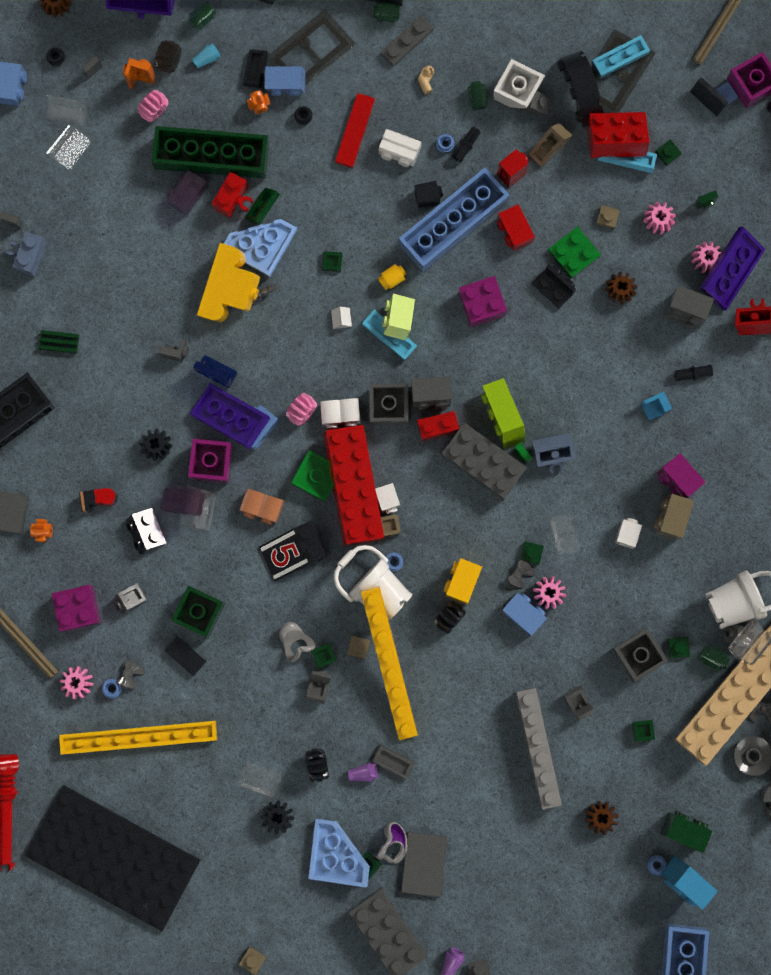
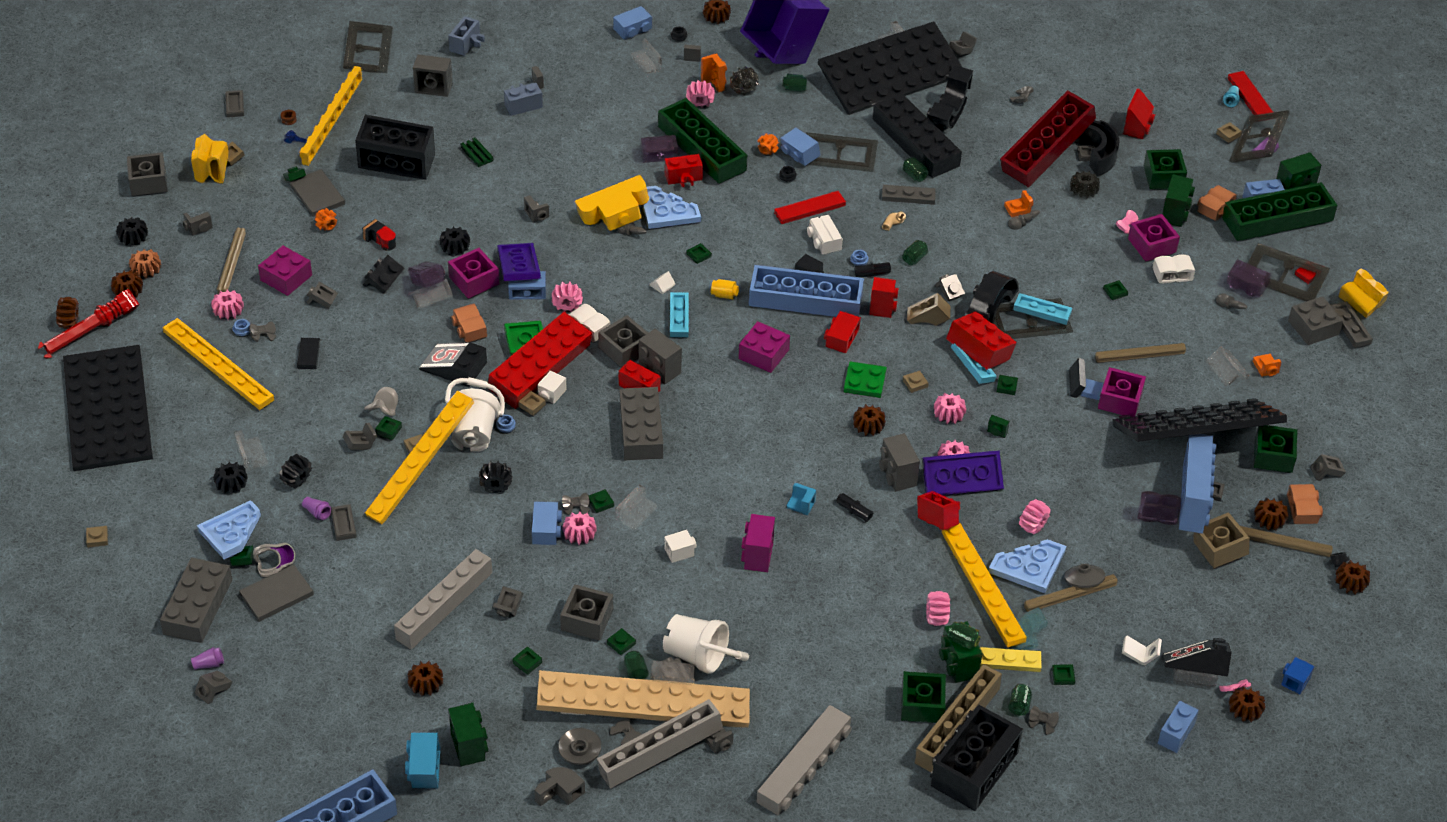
camera: 45 degrees right, 35 degrees down
(69, 147) = (622, 77): clear panel -> none
(198, 611) = (350, 333): dark green brick -> none
(206, 55) = (770, 102): medium azure cone -> none
(215, 371) = (544, 238): clear blue bracket -> none
(255, 68) = (784, 130): black tile -> none
(262, 206) = (695, 191): dark green tile -> none
(398, 317) = (697, 305): yellowish green brick -> none
(463, 581) = (532, 464): yellow brick -> none
(503, 413) = (689, 410): lime wedge -> none
(517, 85) = (946, 260): white slope -> none
(522, 453) = (673, 442): green tile -> none
(553, 451) = (694, 457): sand blue brick -> none
(554, 286) = (824, 383): black bracket -> none
(673, 517) = (722, 558): dark tan brick -> none

